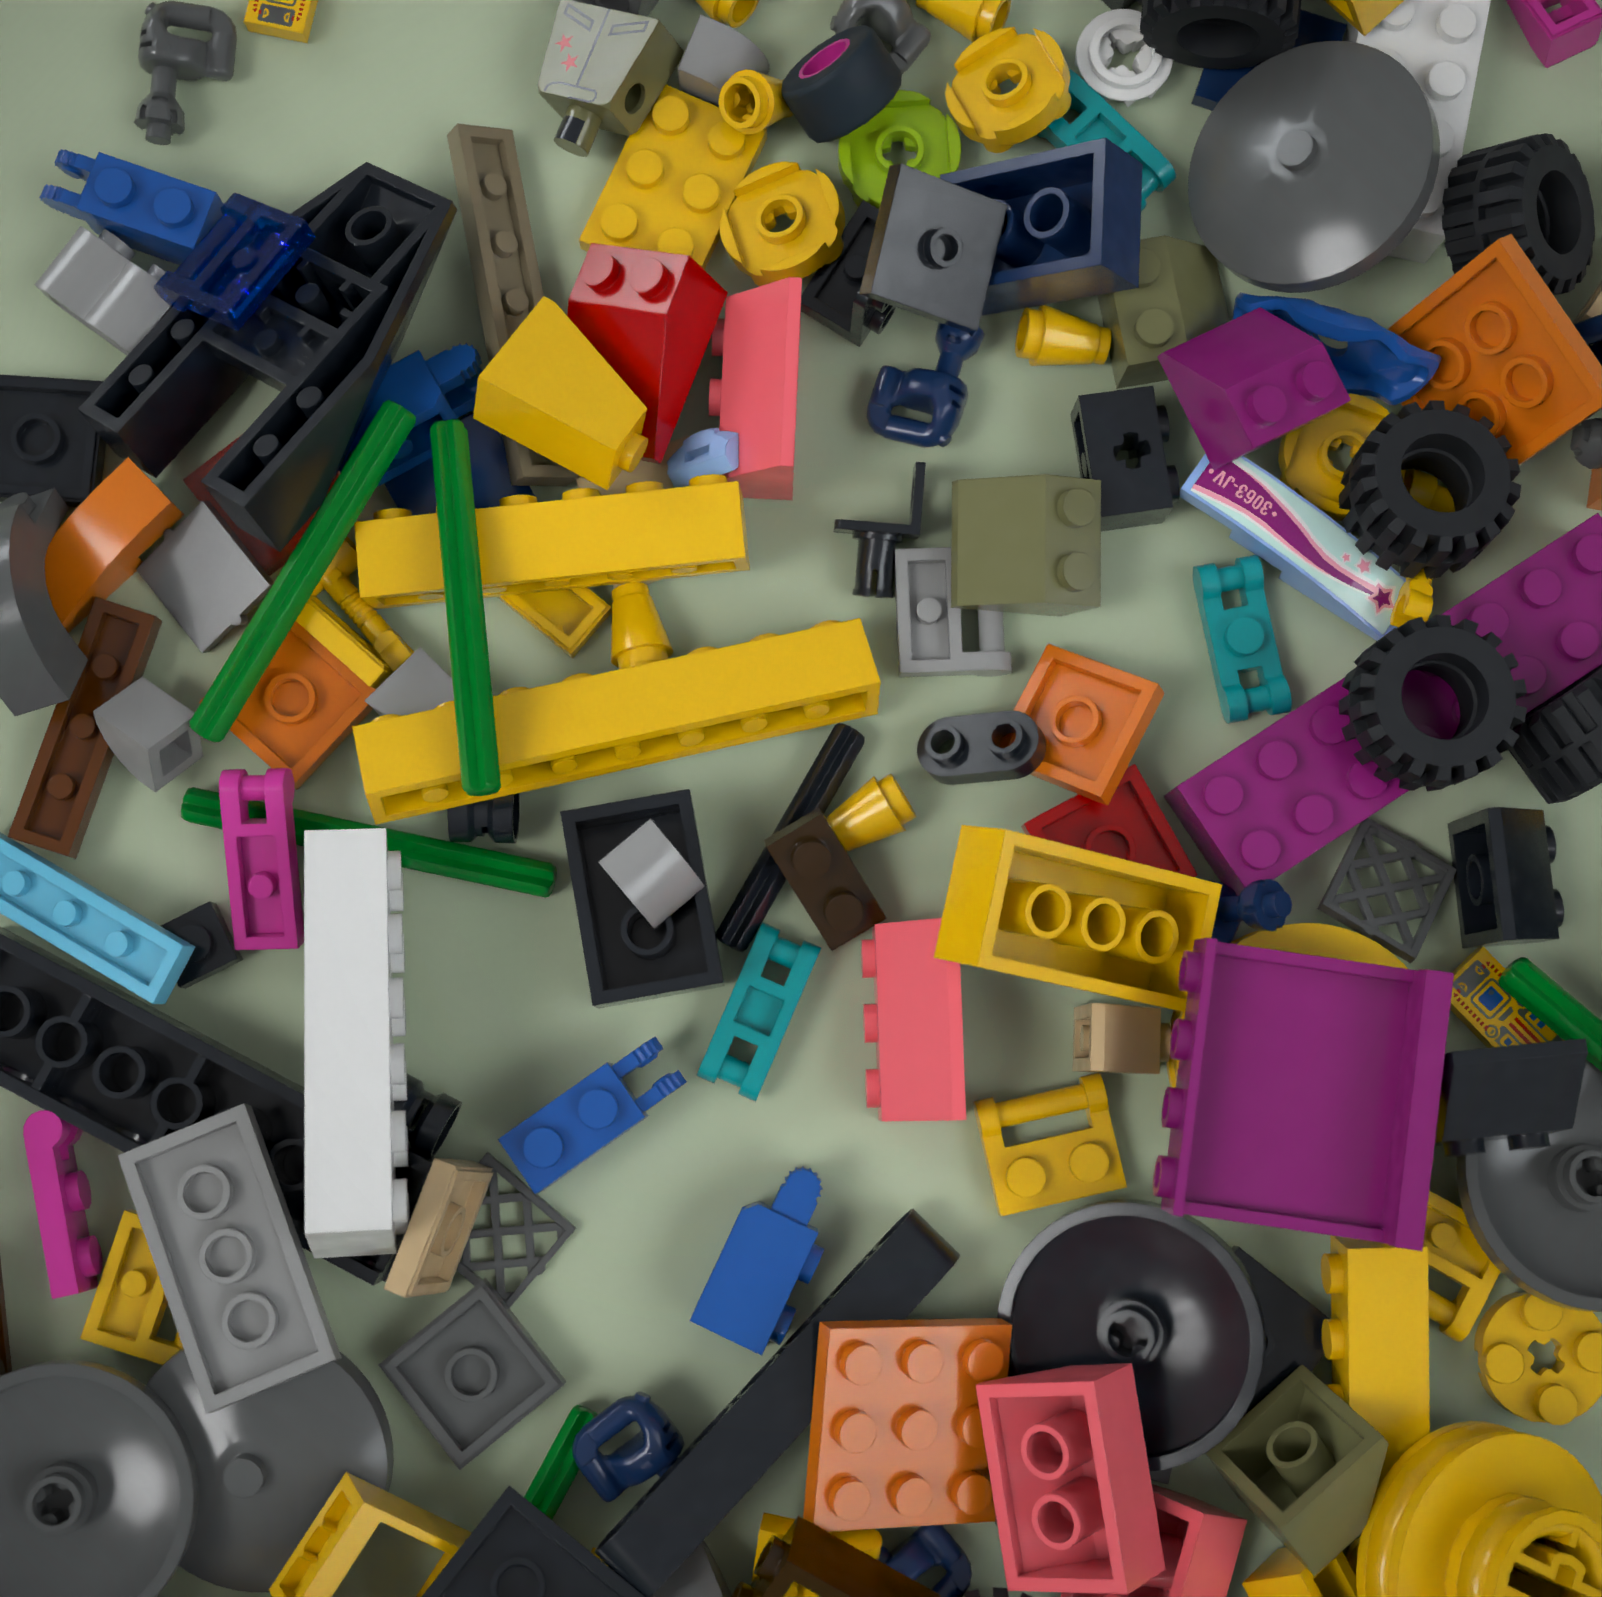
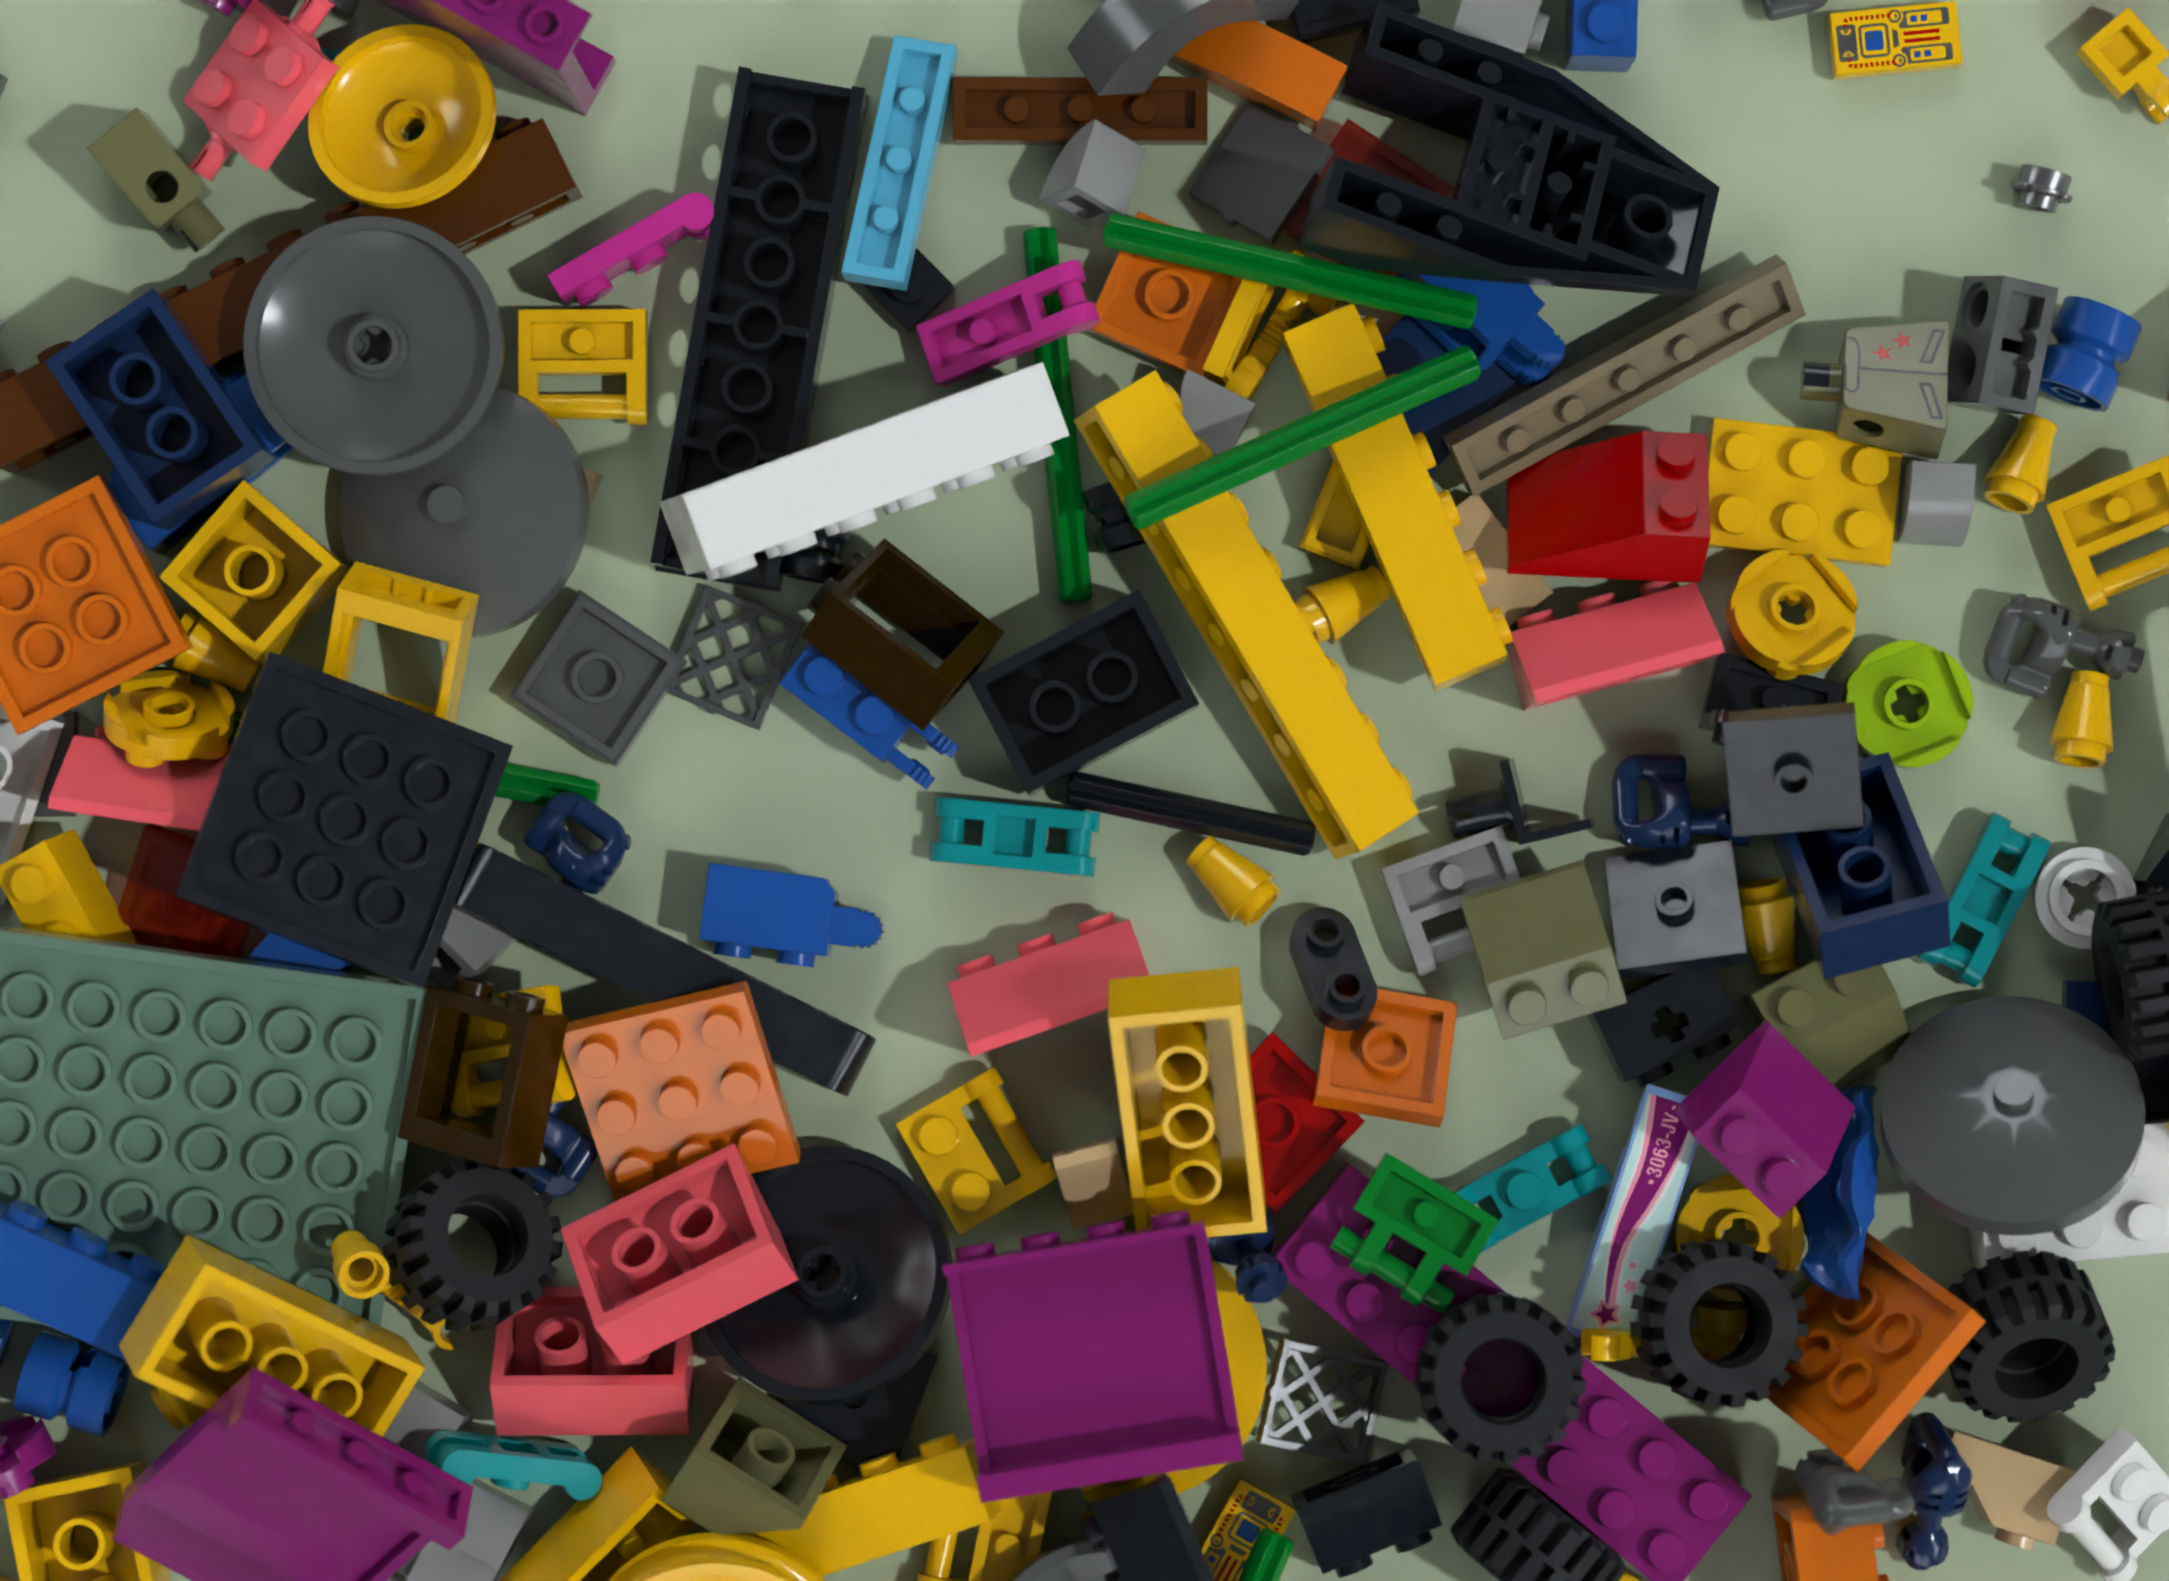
camera: 80 degrees right, 5 degrees up
(228, 1258) = (636, 424): light grey plate -> none
(237, 262) = (1568, 115): clear blue plate -> none
(439, 1227) = (722, 606): tan plate -> none
(506, 1034) = (920, 608): none -> dark brown window
(562, 399) = (1535, 461): yellow slope -> none
(652, 873) = (1105, 695): light grey brick -> none
(704, 454) = (1528, 612): light blue piece -> none
(752, 101) = (1907, 547): yellow cone -> none
(825, 879) = (1158, 859): dark brown plate -> none
(841, 84) = (1950, 625): black wheel -> none
(1021, 113) = (2001, 824): yellow plate -> none
(1025, 411) = (1676, 910): none -> plate
(1251, 728) = (1424, 1215): none -> green plate

